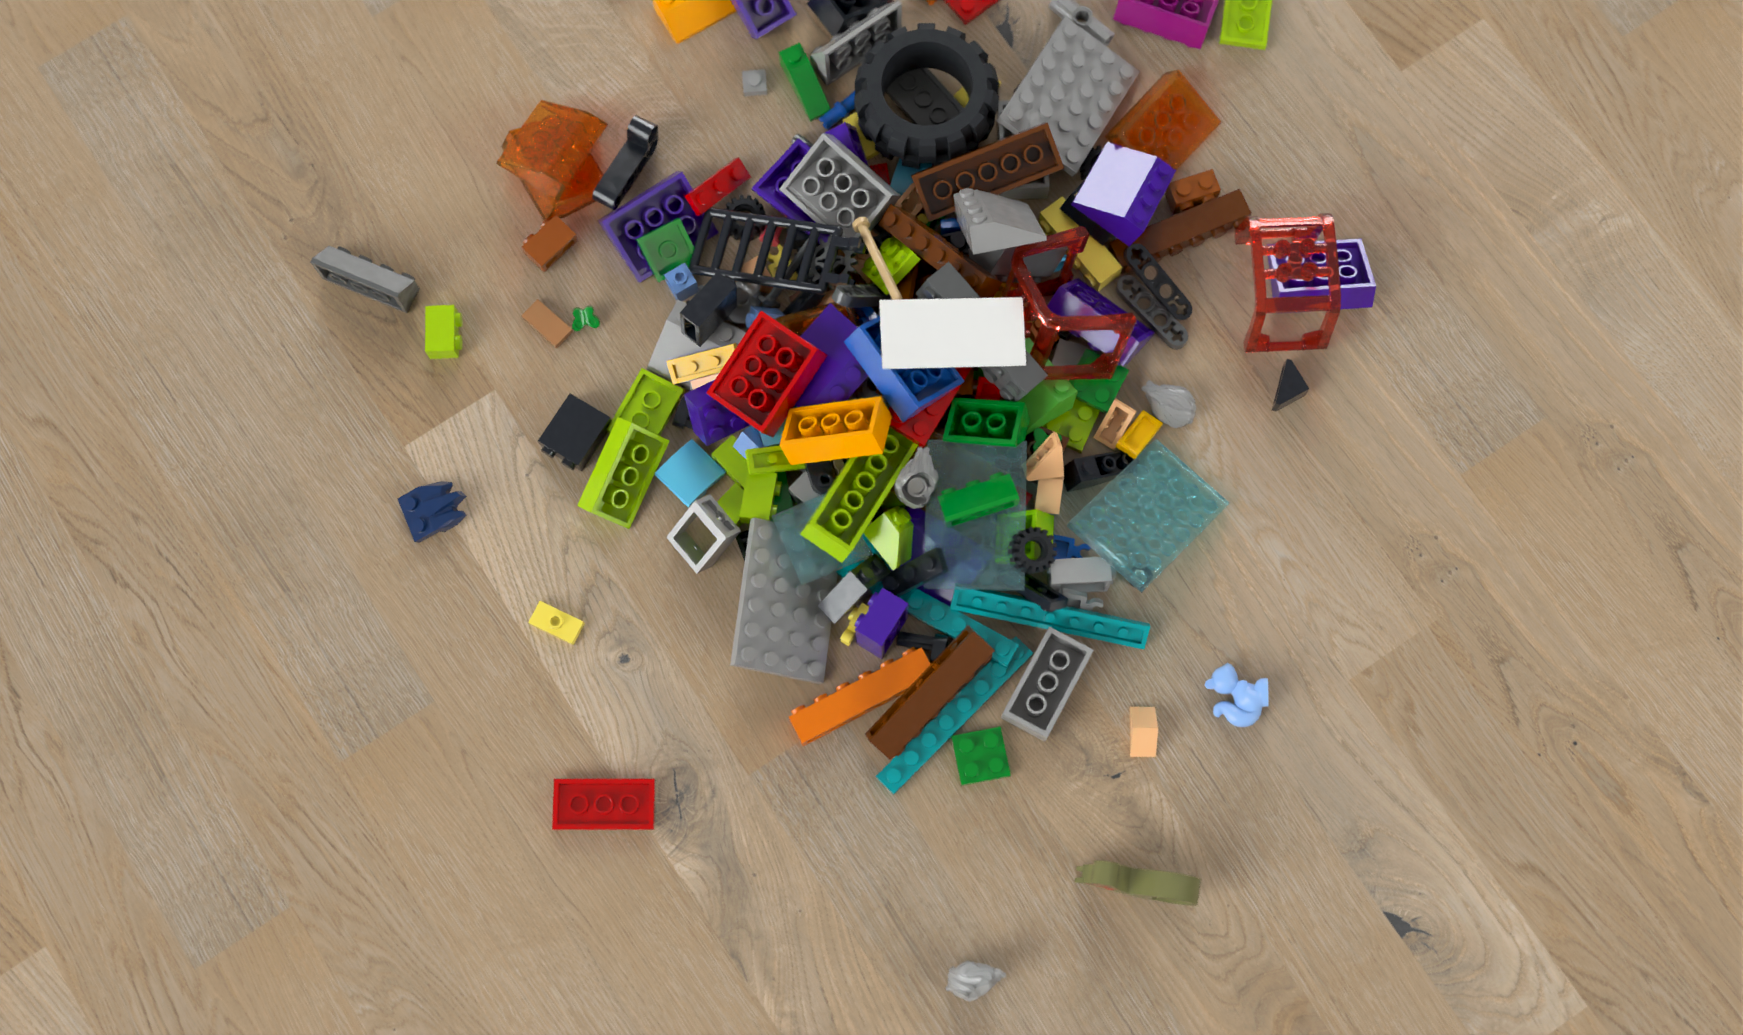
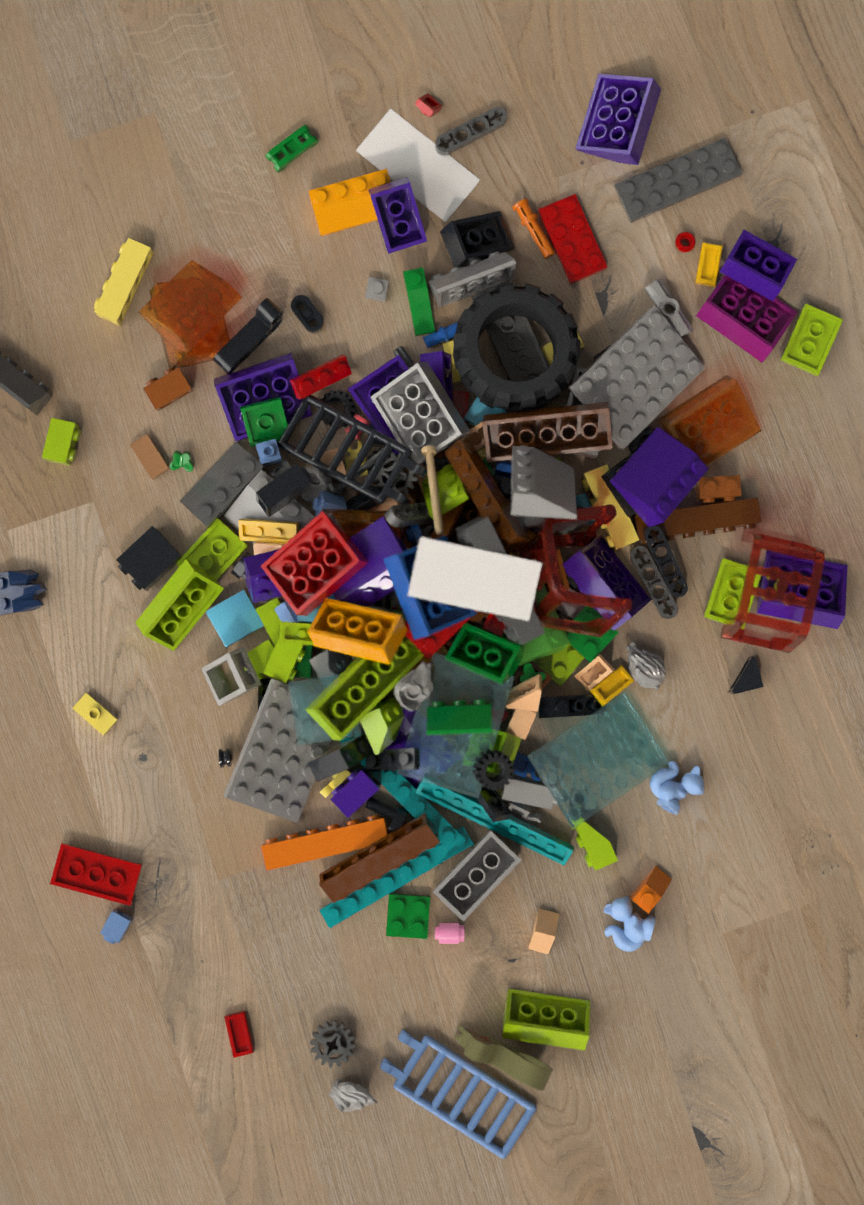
camera: 10 degrees right, 10 degrees up
(470, 144) = (123, 282): none -> light yellow brick
(636, 332) = (222, 485): none -> dark grey slope
(643, 858) = (116, 926): none -> medium blue brick
(685, 127) = (307, 314): none -> black plate
(719, 631) = (224, 757): none -> black bush
(820, 947) = (239, 1034): none -> red tile
(922, 923) = (325, 1040): none -> dark grey gear
(1035, 761) = (449, 933): none -> bright pink brick
(1117, 917) = (479, 1075): none -> medium blue bar
(1173, 615) = (597, 847): none -> lime slope
(1176, 830) = (546, 1019): none -> lime slope
(1237, 300) = (727, 592): none -> lime plate
(1242, 533) = (671, 792): none -> light blue animal
(1251, 650) = (651, 889): none -> orange slope

